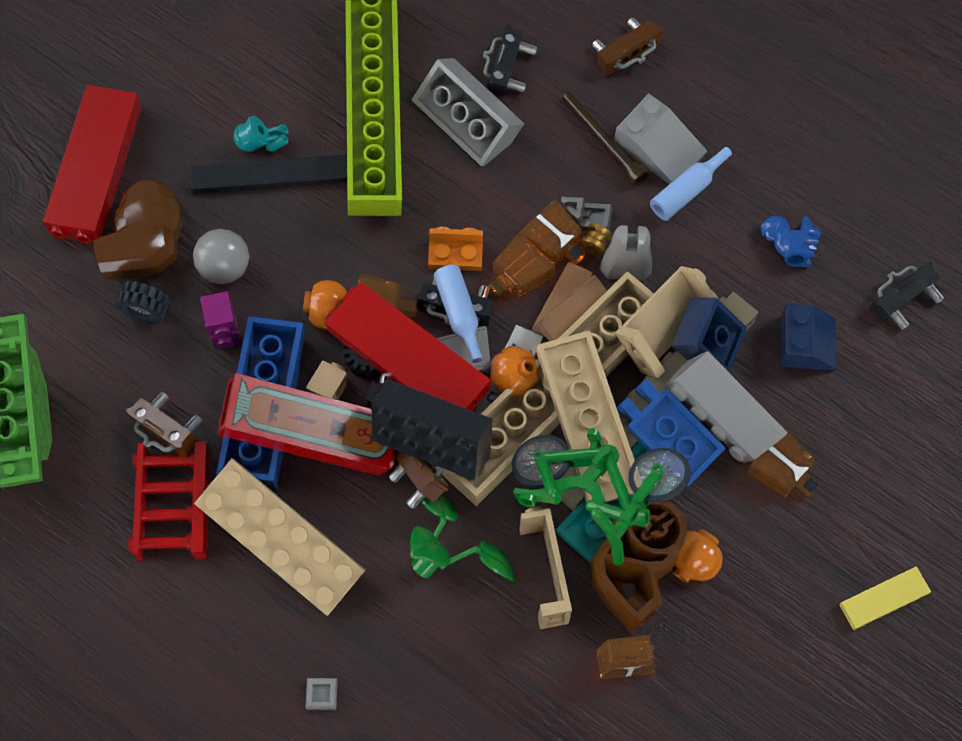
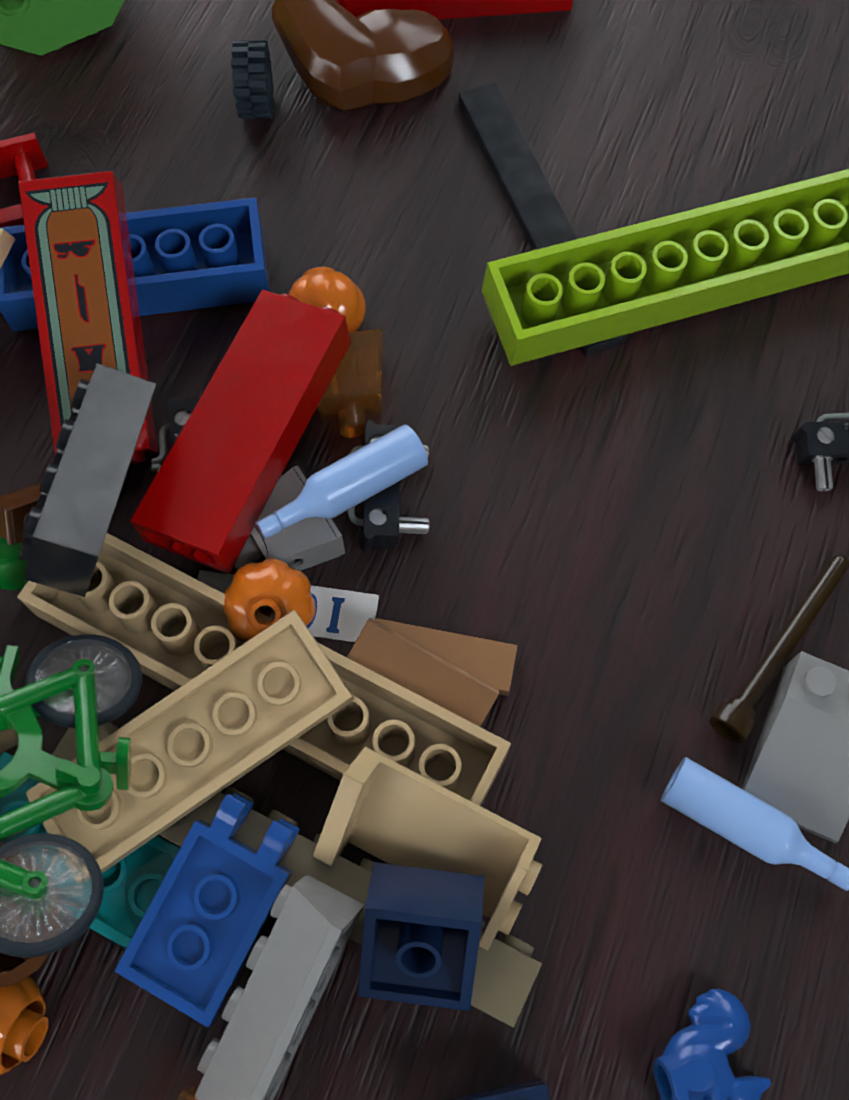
camera: 75 degrees right, 0 degrees up
(162, 426) = (77, 149): piece -> none
(220, 320) = (248, 167): magenta piece -> none
(221, 256) = (351, 145): light grey piece -> none
(255, 134) = (573, 136): teal piece -> none
(328, 380) = (190, 344): tan brick -> none
(455, 248) = (480, 463): orange bracket -> none
(467, 111) = (740, 411): light grey slope -> none
(520, 268) = (475, 568): clear orange torso -> none
(555, 234) = (557, 606): clear orange torso -> none
(588, 213) = (622, 659): dark grey slope -> none
(595, 240) = (573, 680): pearl gold wheel -> none
(628, 254) = (553, 744): light grey piece -> none

